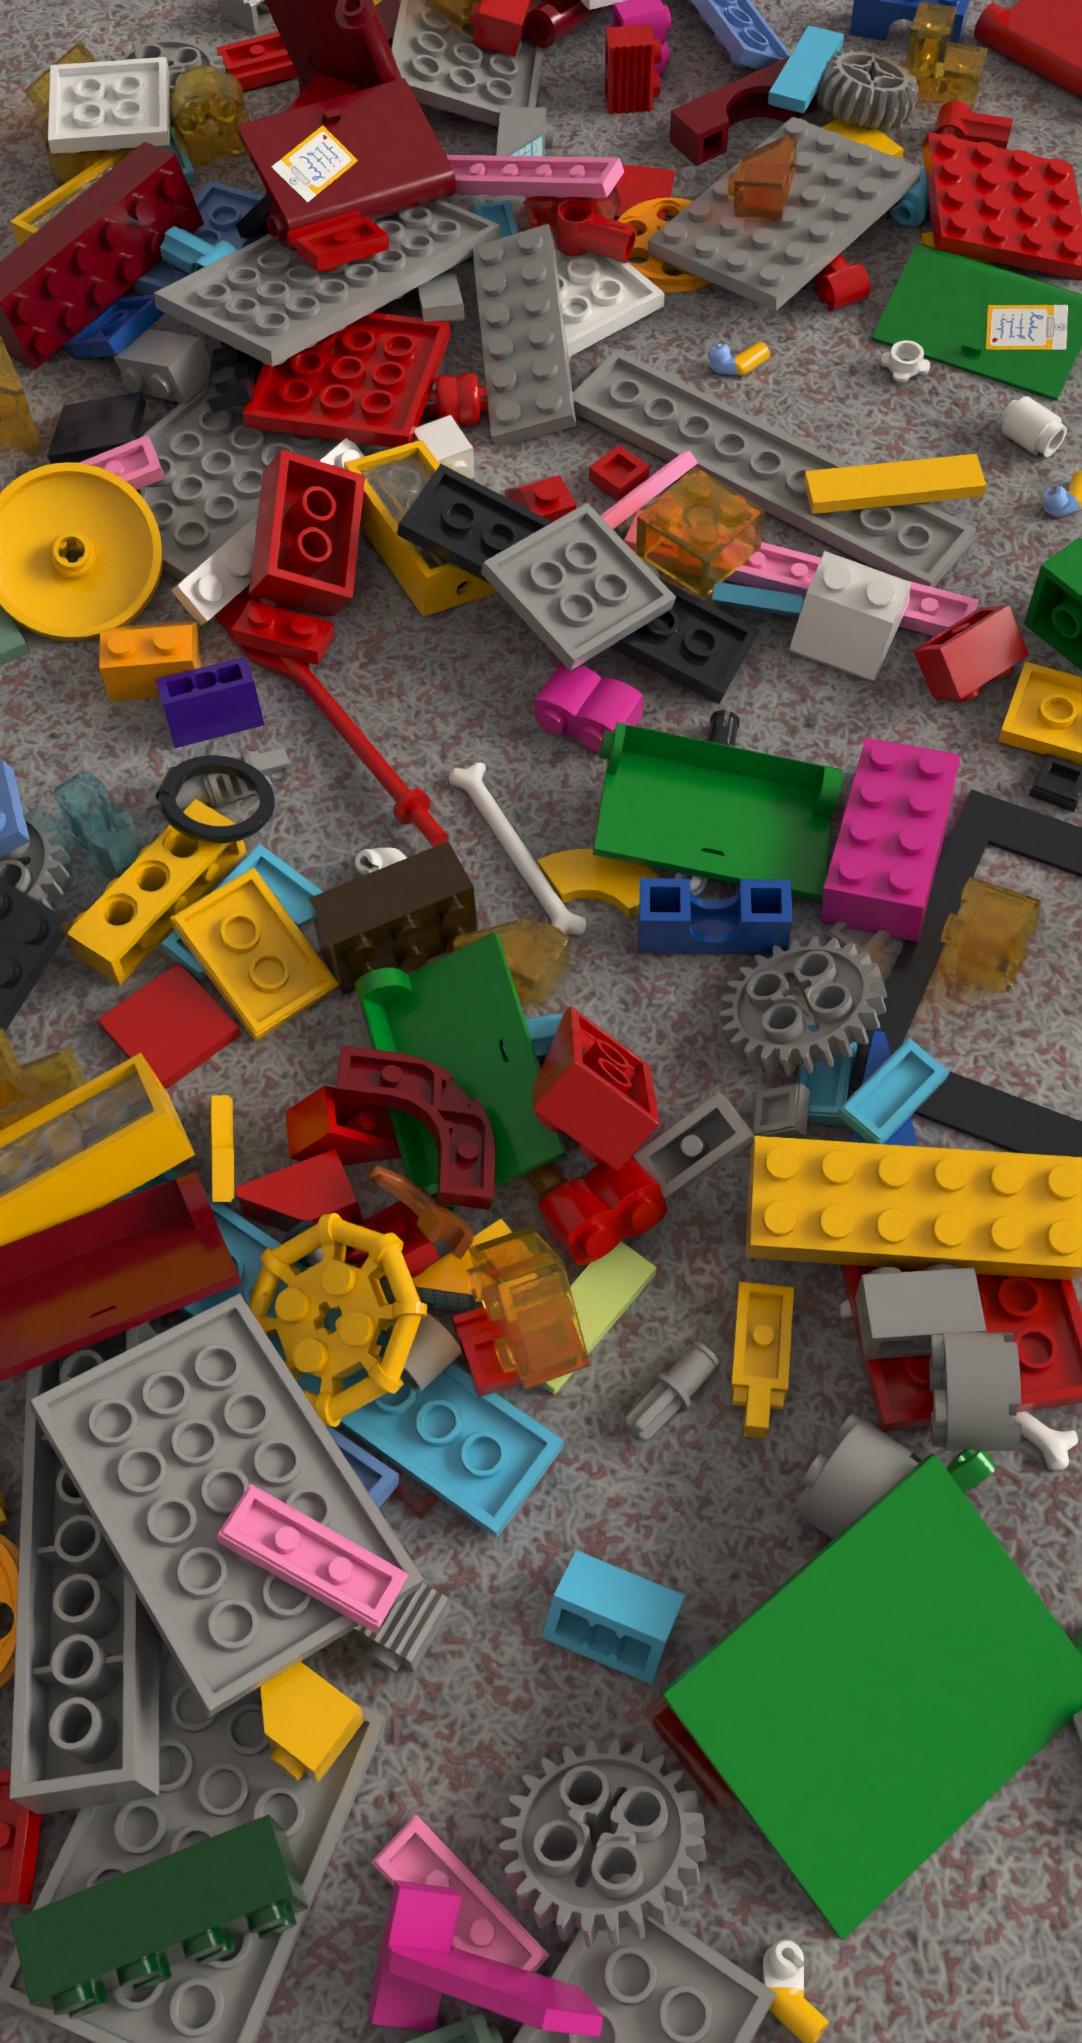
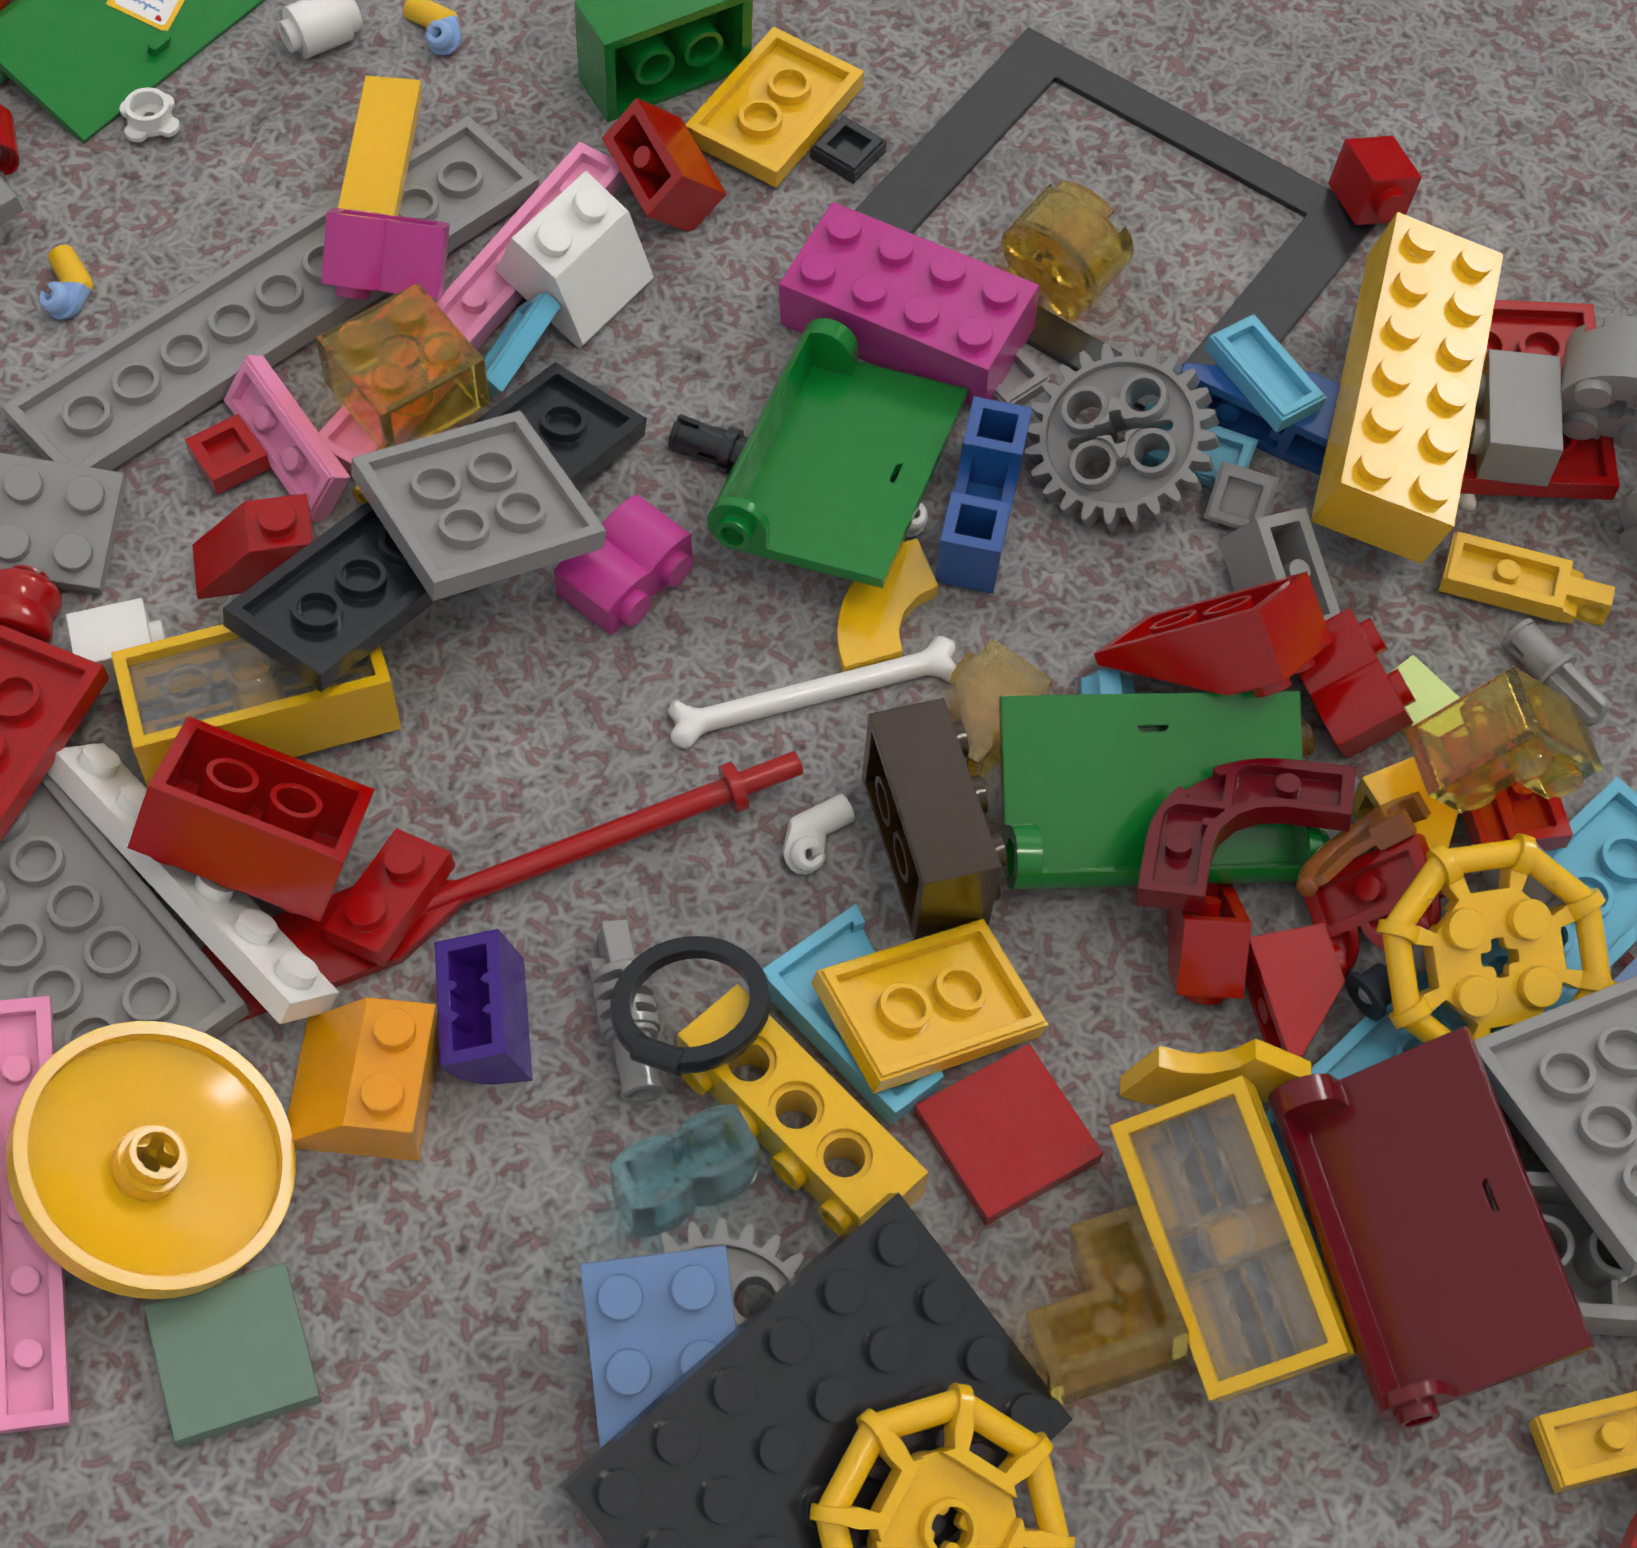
camera: 85 degrees left, 0 degrees up
(799, 496) = (383, 253): none -> dark pink brick

